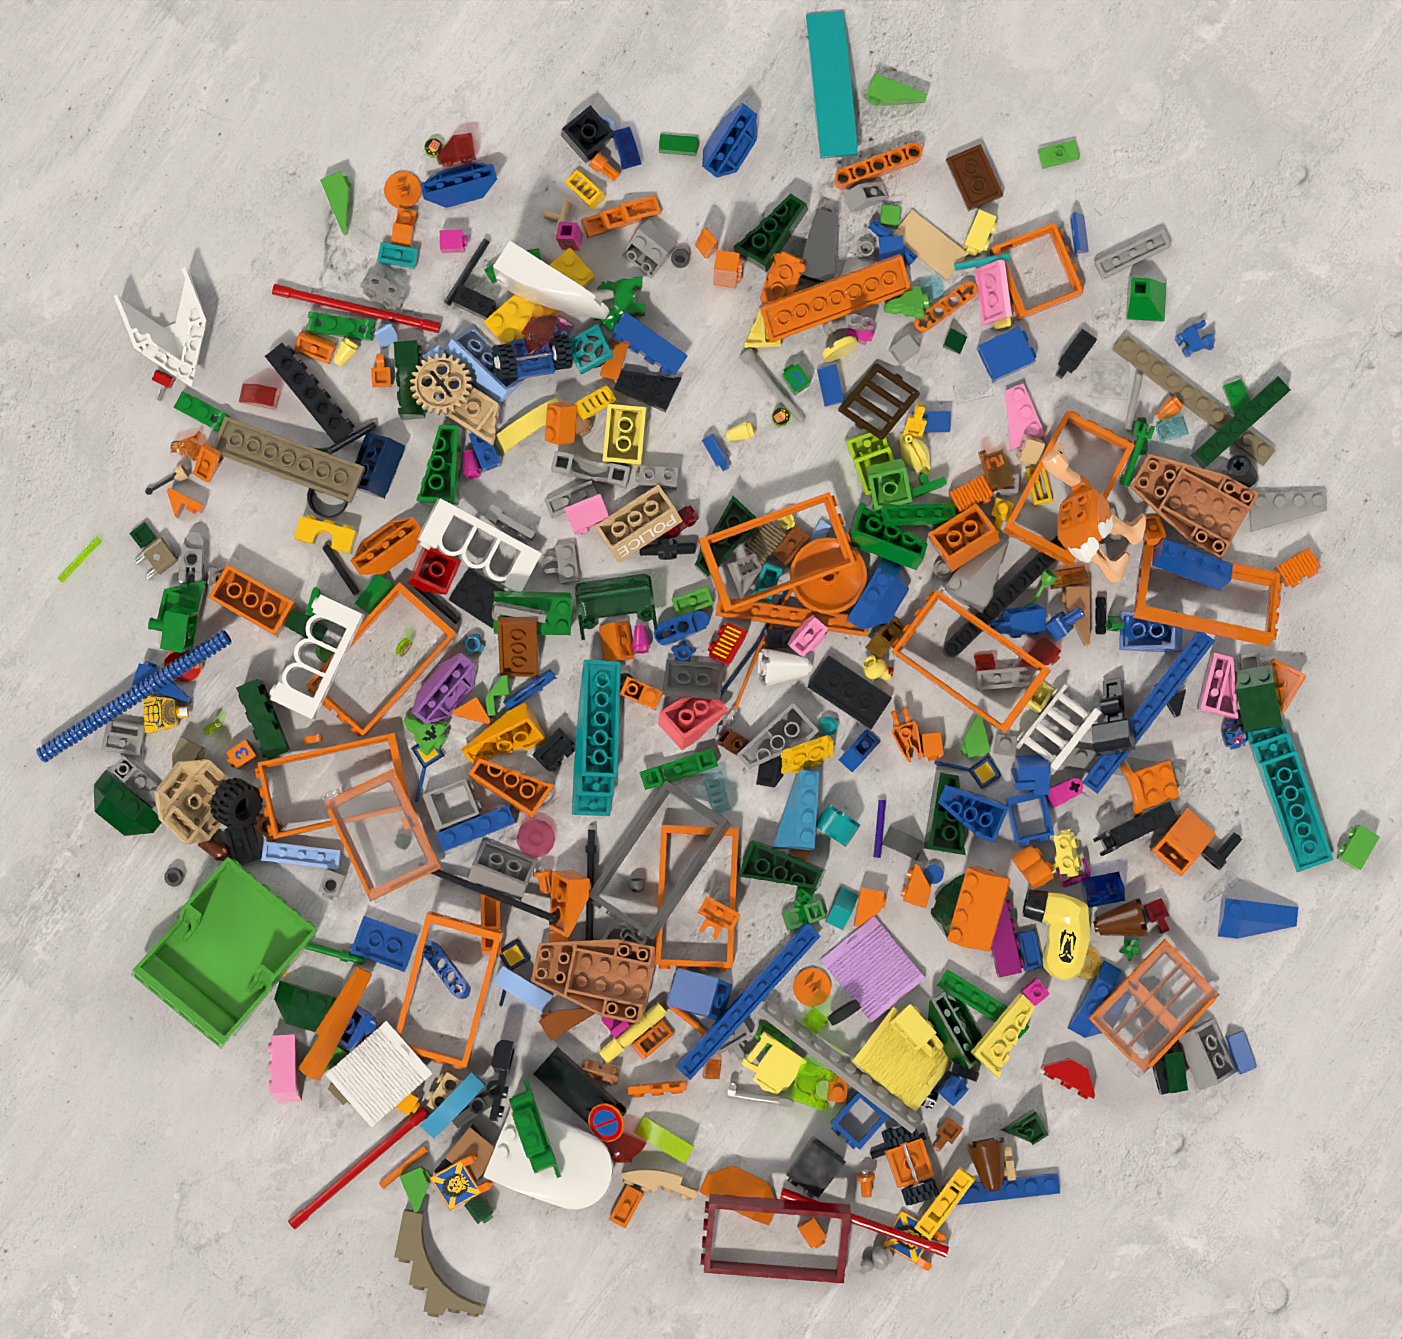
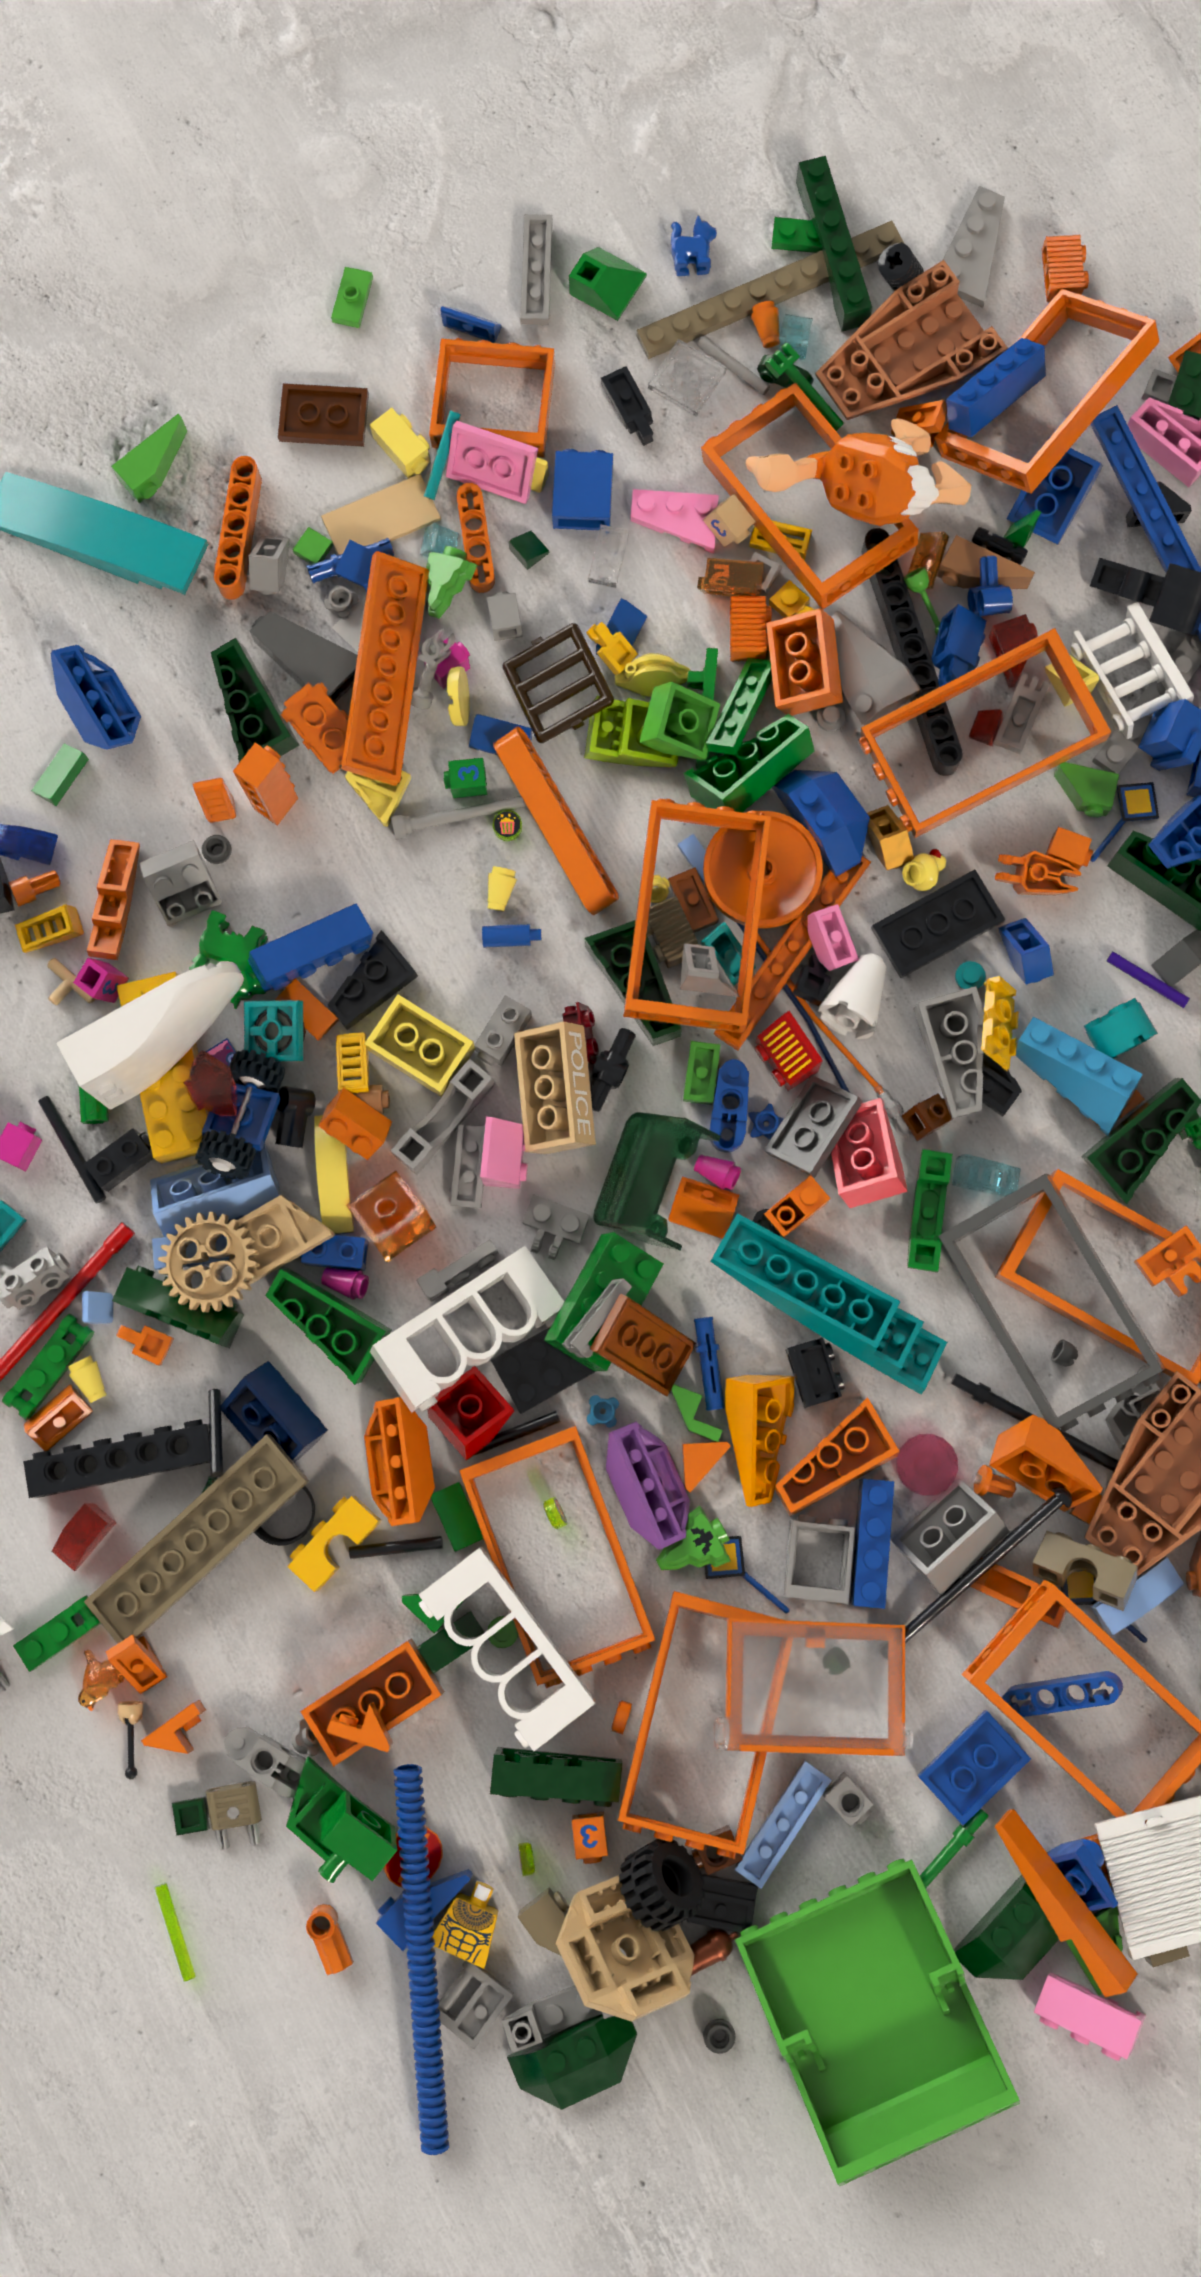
camera: 55 degrees left, 5 degrees down
(116, 645) = (329, 1941): none -> orange piece
(235, 607) = (371, 1733): none -> orange slope
(520, 470) = (391, 1216): none -> clear orange slope
(521, 934) = (1061, 1556): none -> dark tan arch
(552, 384) = (294, 1109): none -> black piece
(796, 443) = (556, 821): none -> orange beam

